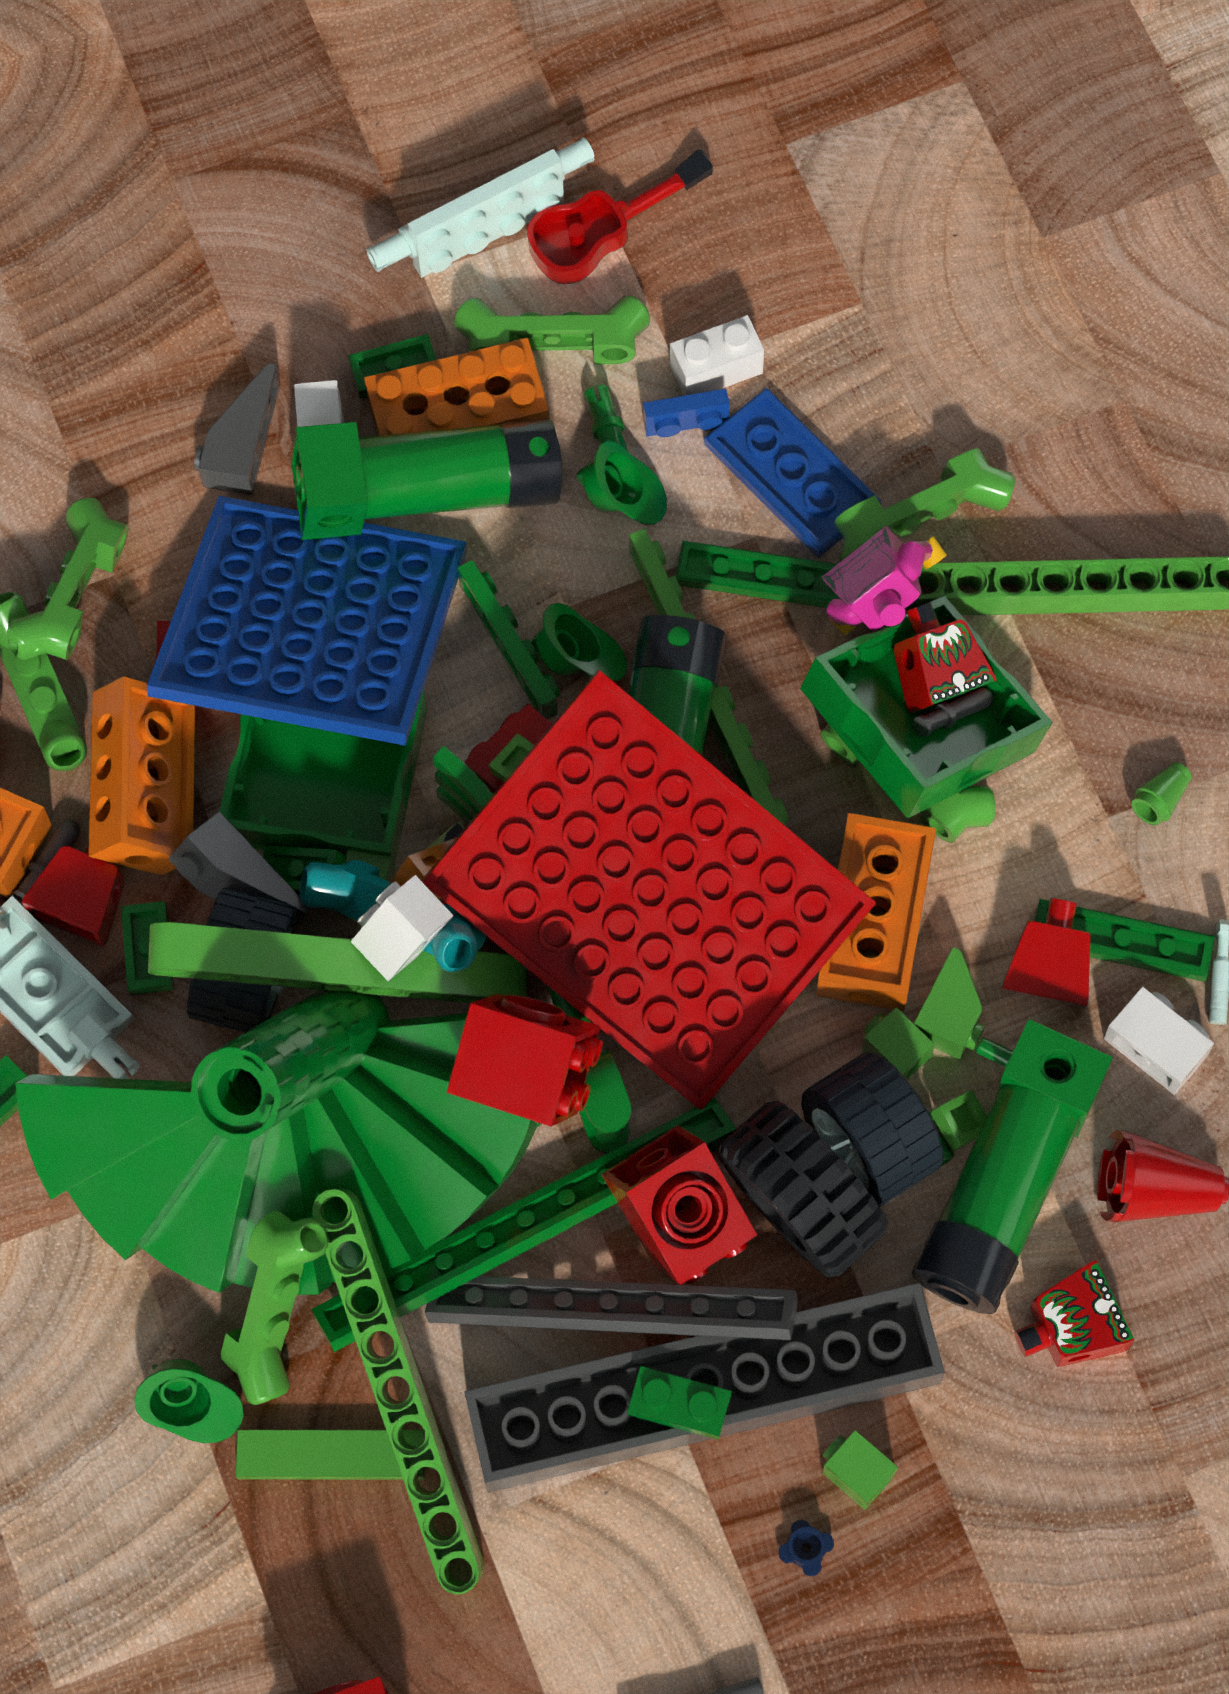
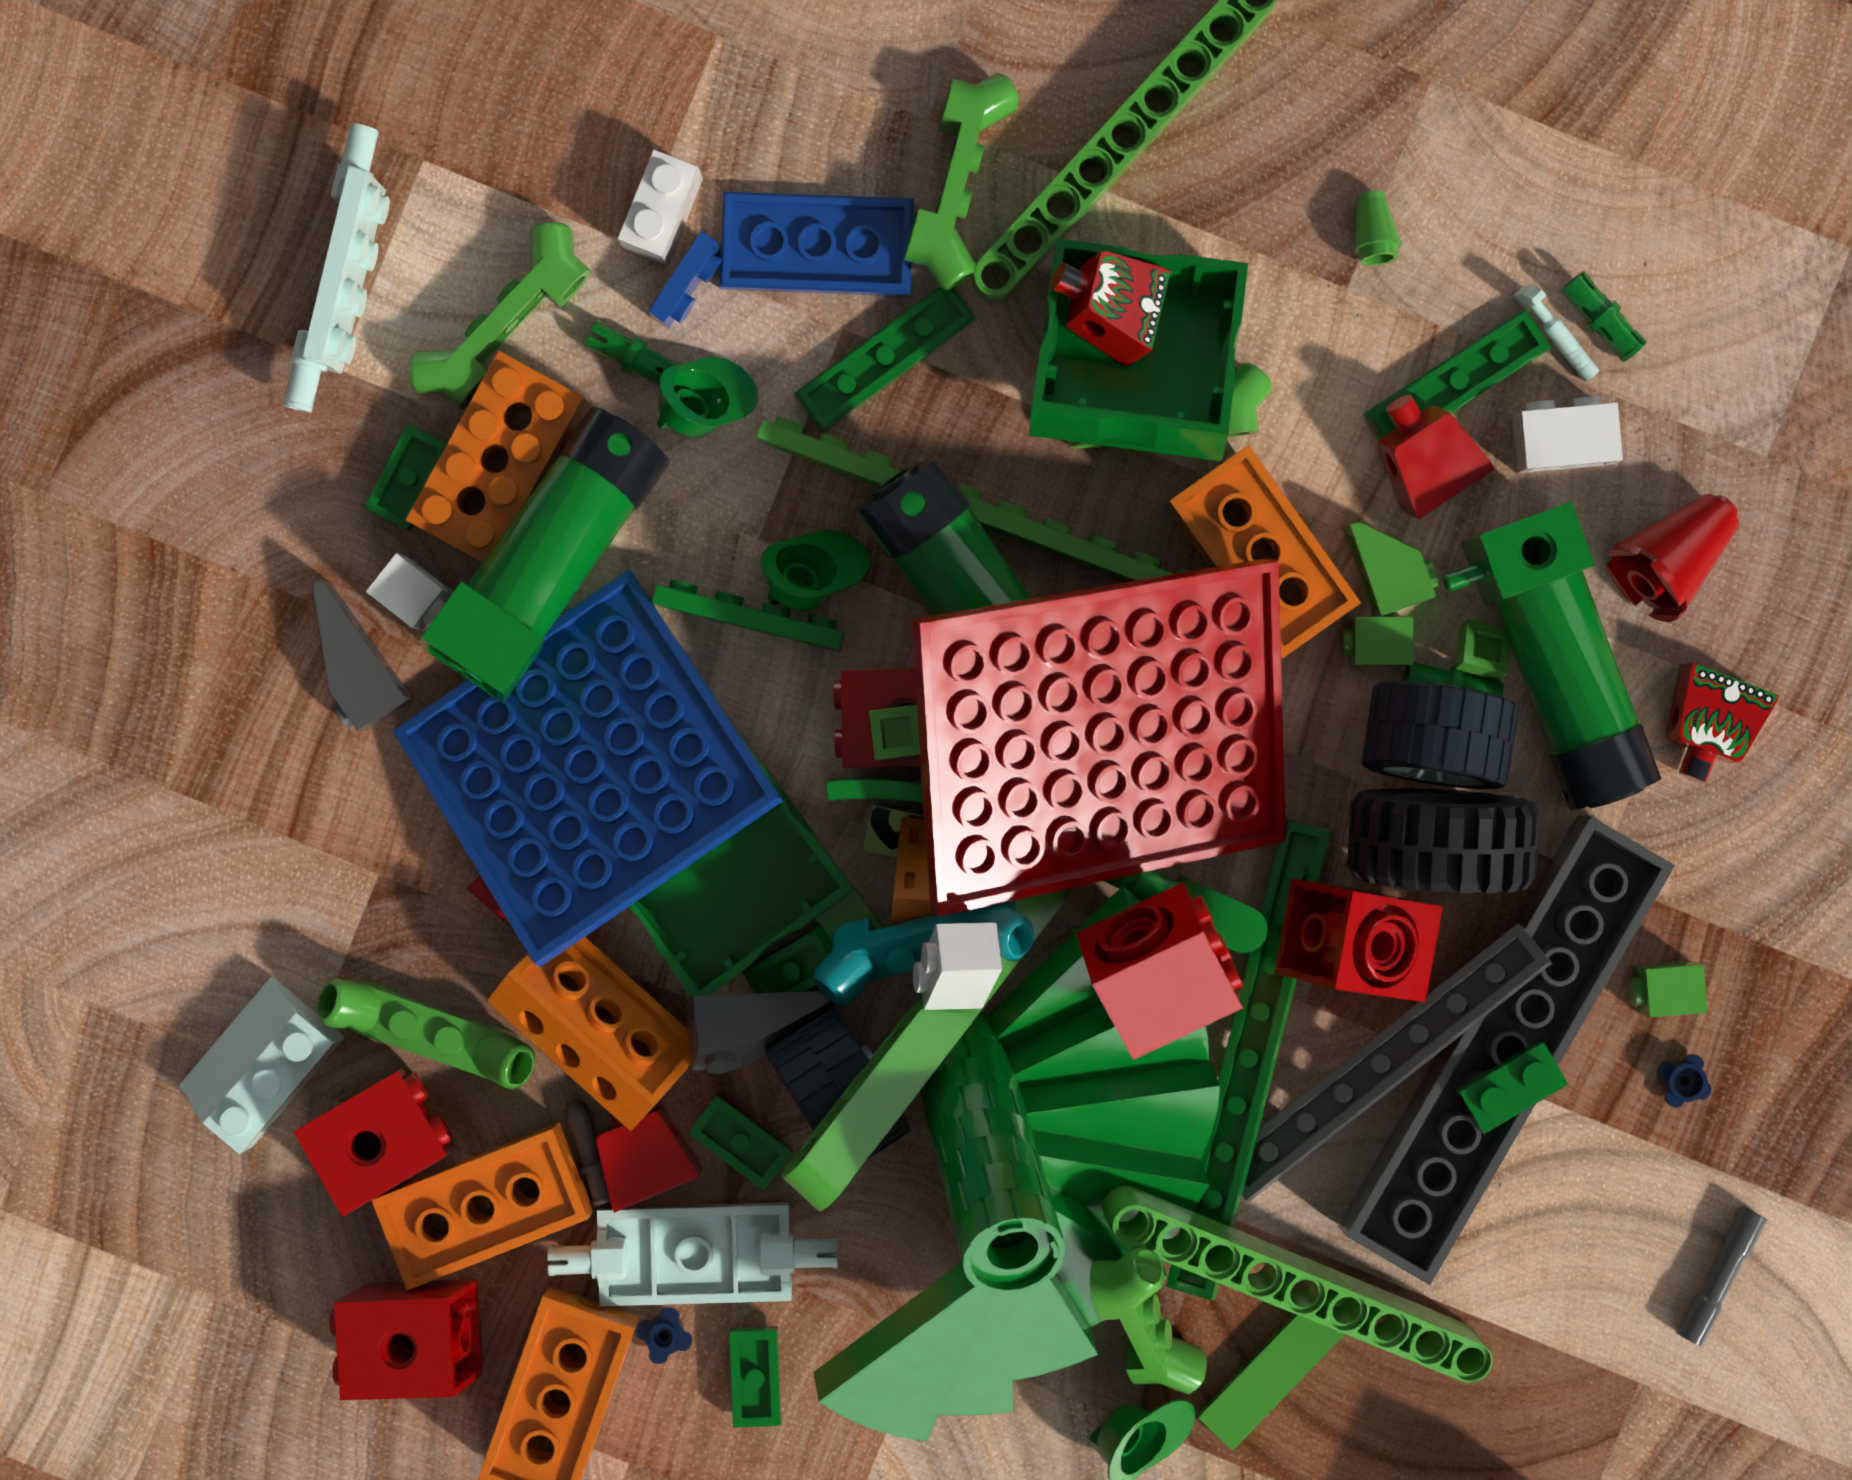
camera: 50 degrees left, 20 degrees up
(60, 624) = (399, 976): bright green plate -> none
(575, 236) = (430, 214): red piece -> none
(879, 580) = (1006, 284): dark pink torso -> none
(947, 714) = (1163, 341): dark grey piece -> none

